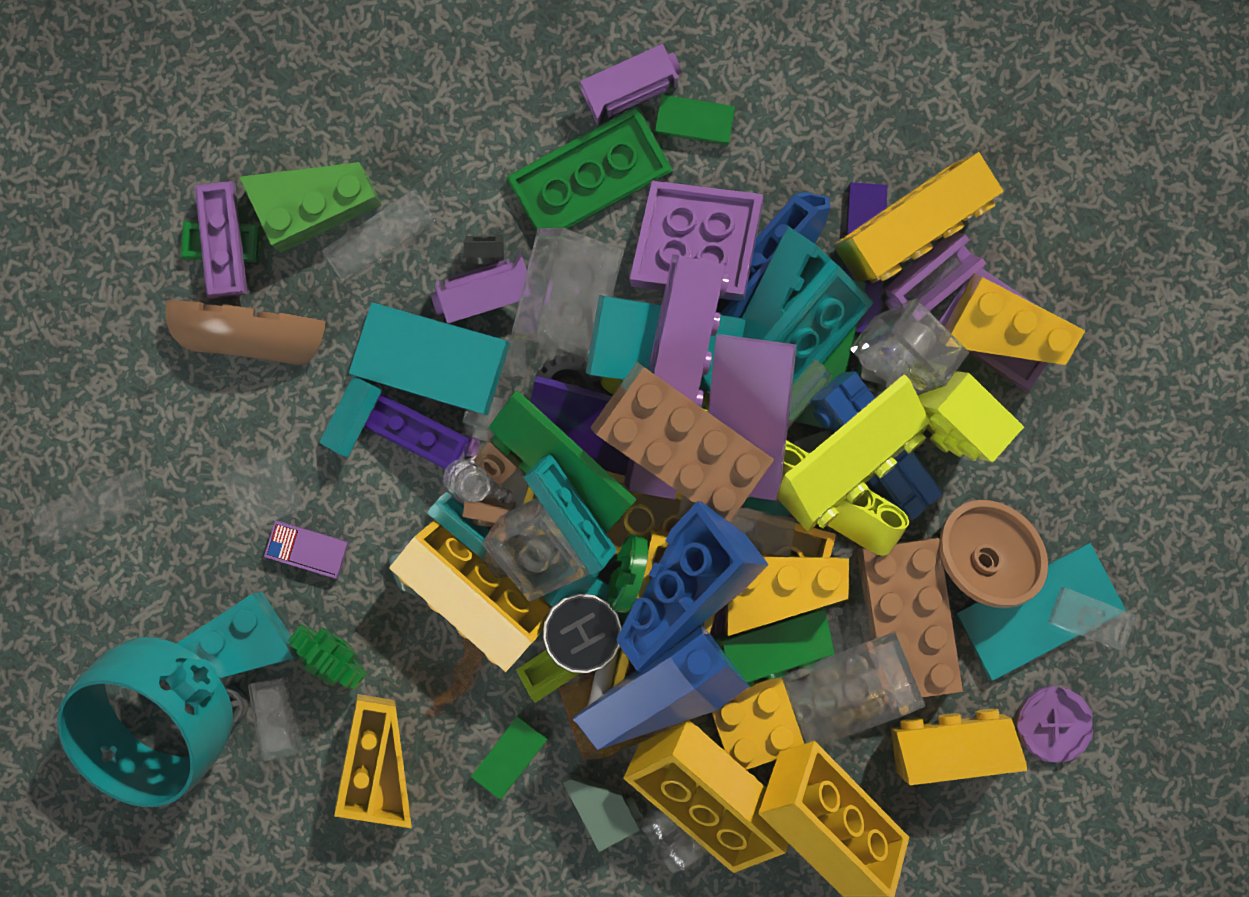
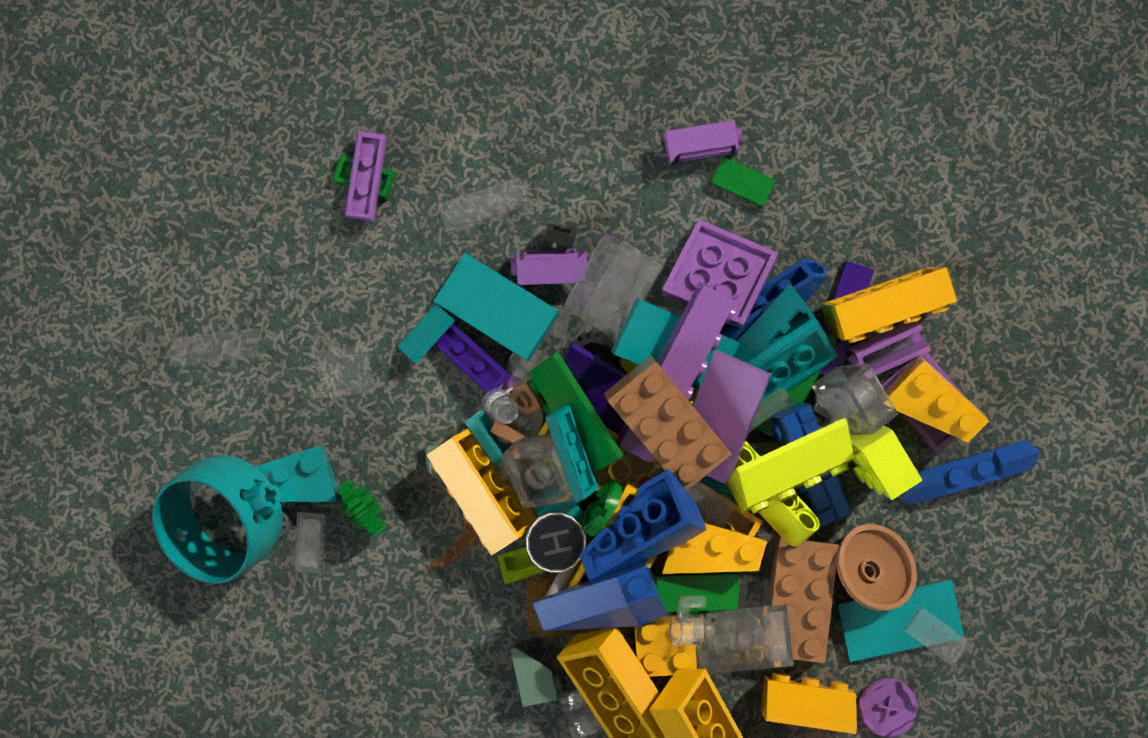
camera: 20 degrees right, 0 degrees up
(239, 333) = (363, 250): medium nougat brick -> none
(306, 549) = (366, 423): medium lavender tile -> none
(309, 201) = (439, 165): bright green wedge -> none
(373, 767) = (373, 598): yellow wedge -> none
(509, 757) = (474, 619): green tile -> none
(590, 173) = (653, 200): green tile -> none
(782, 696) = (690, 629): none -> clear piece
(1080, 400) = (973, 471): none -> blue brick

